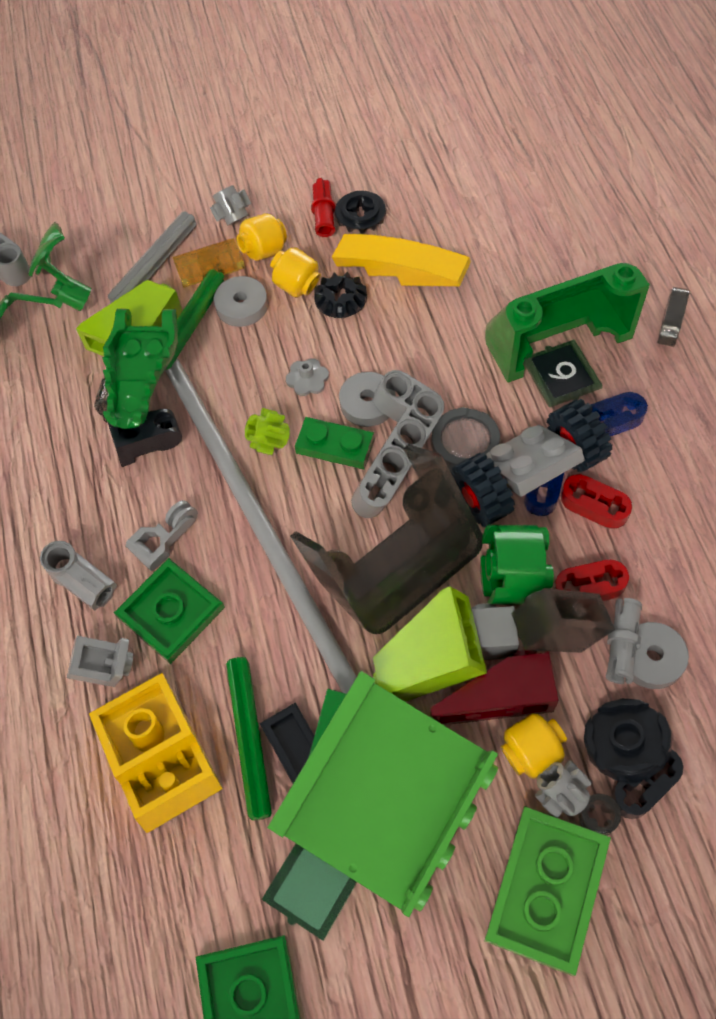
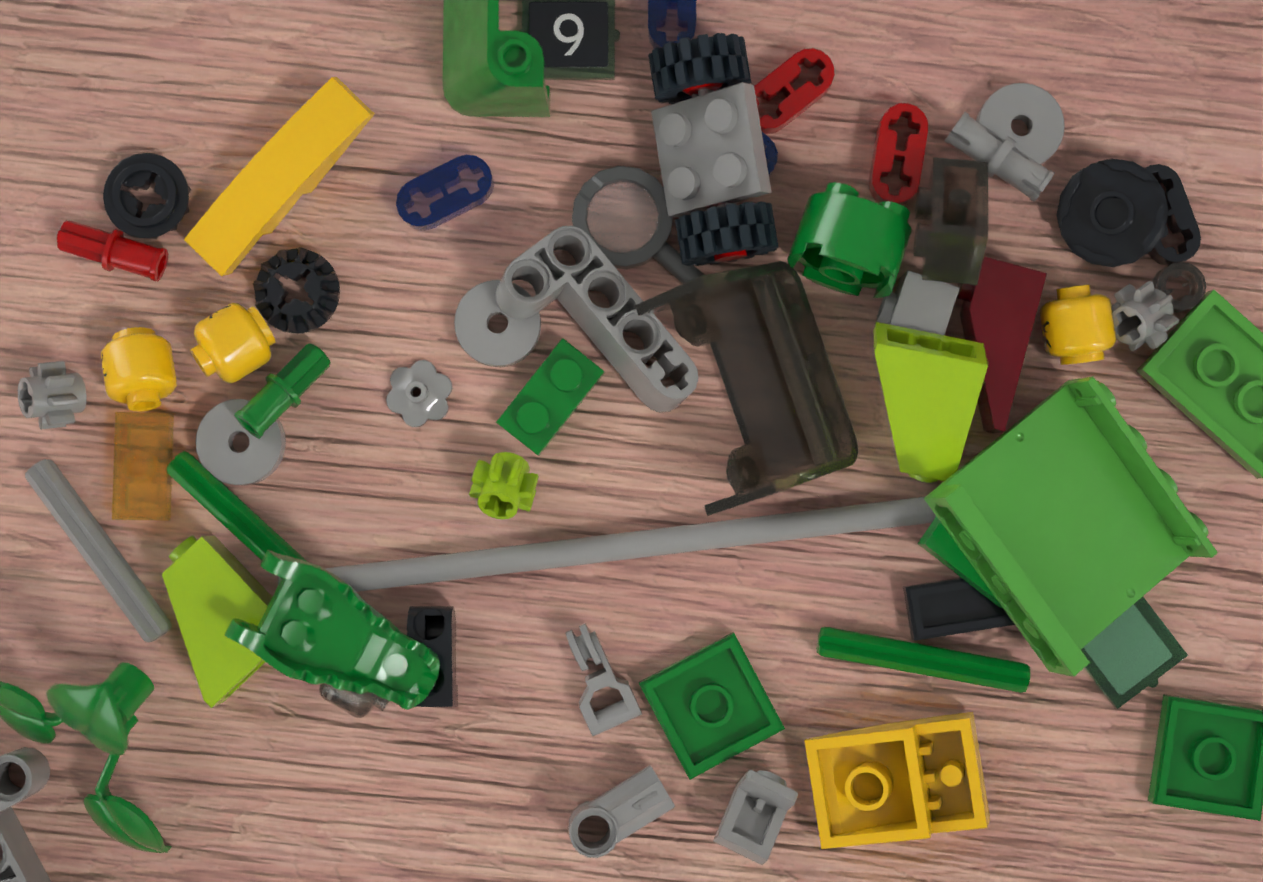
camera: 70 degrees left, 25 degrees up
(278, 304) = (283, 390): none -> green axle
(430, 346) = (438, 181): none -> clear blue beam

